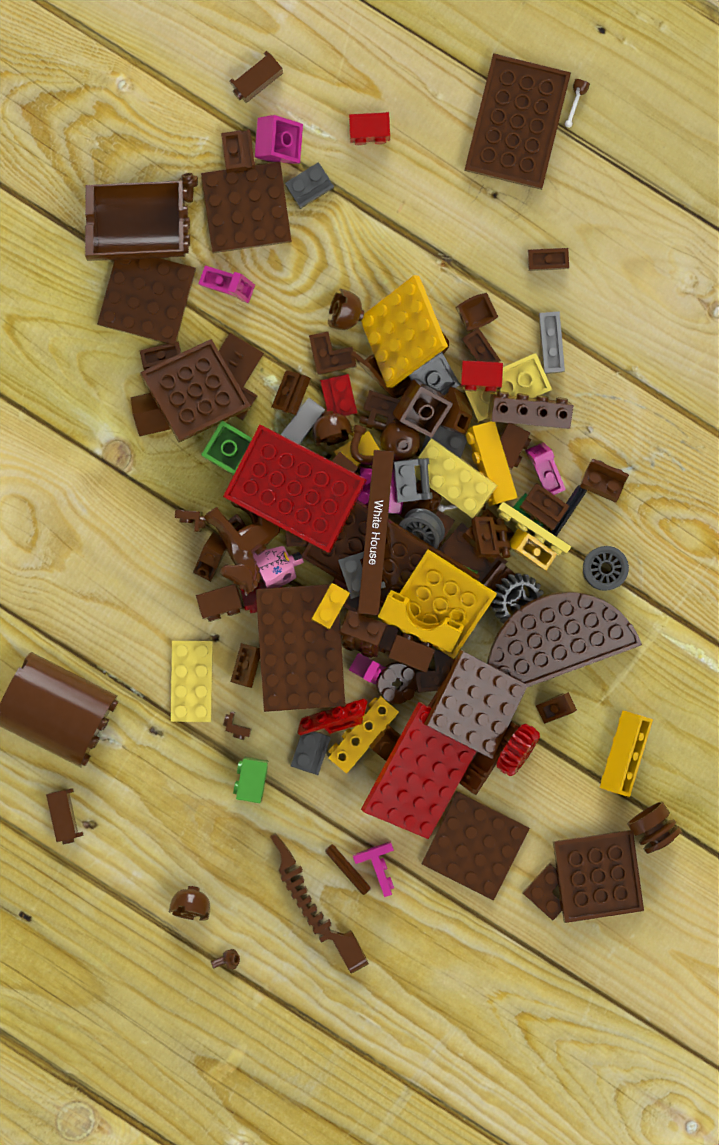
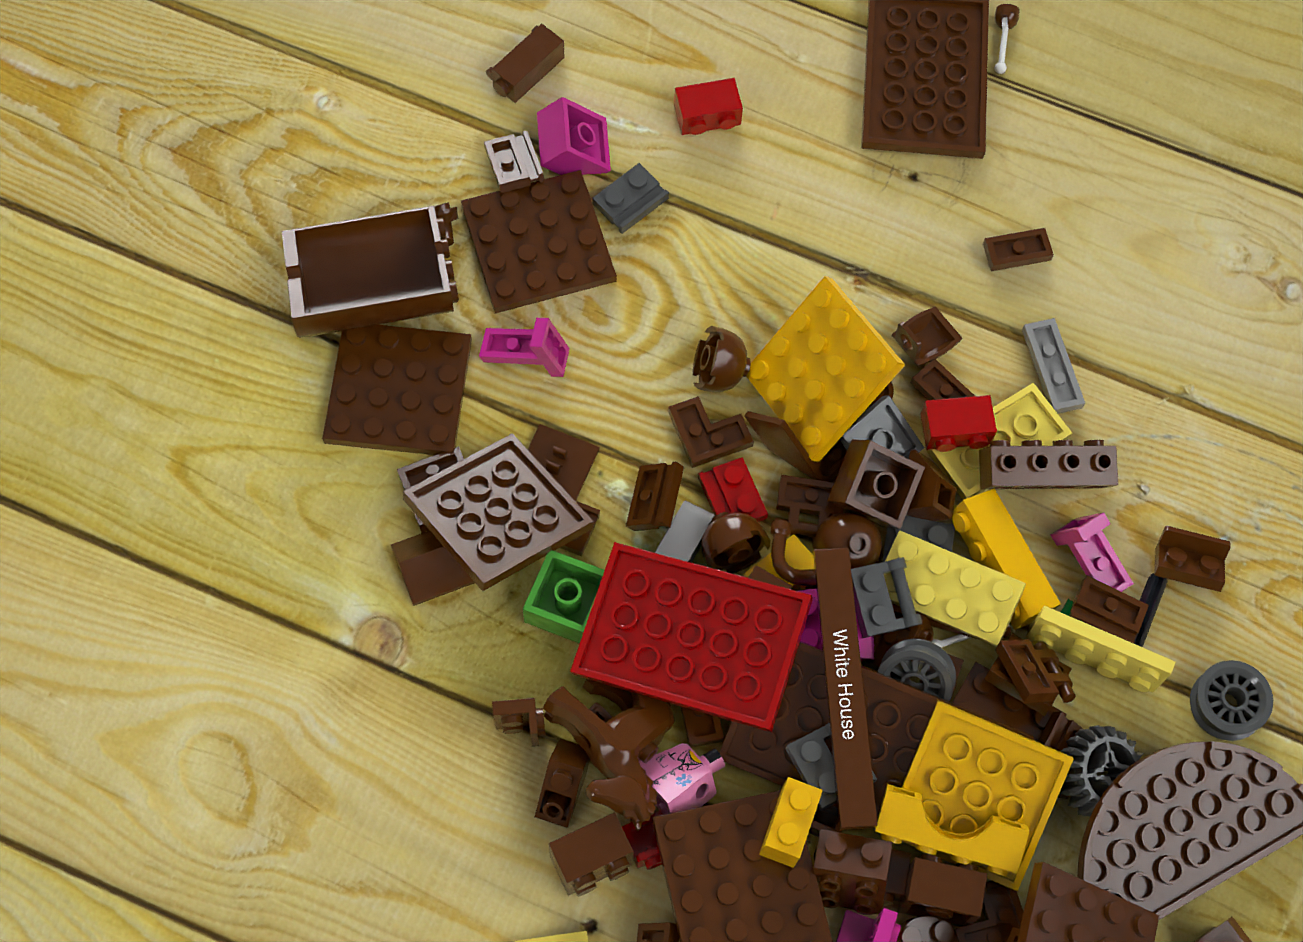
camera: 10 degrees left, 20 degrees down
(513, 441) = (1034, 519): reddish brown slope -> none
(532, 549) = (1107, 684): yellow brick -> none

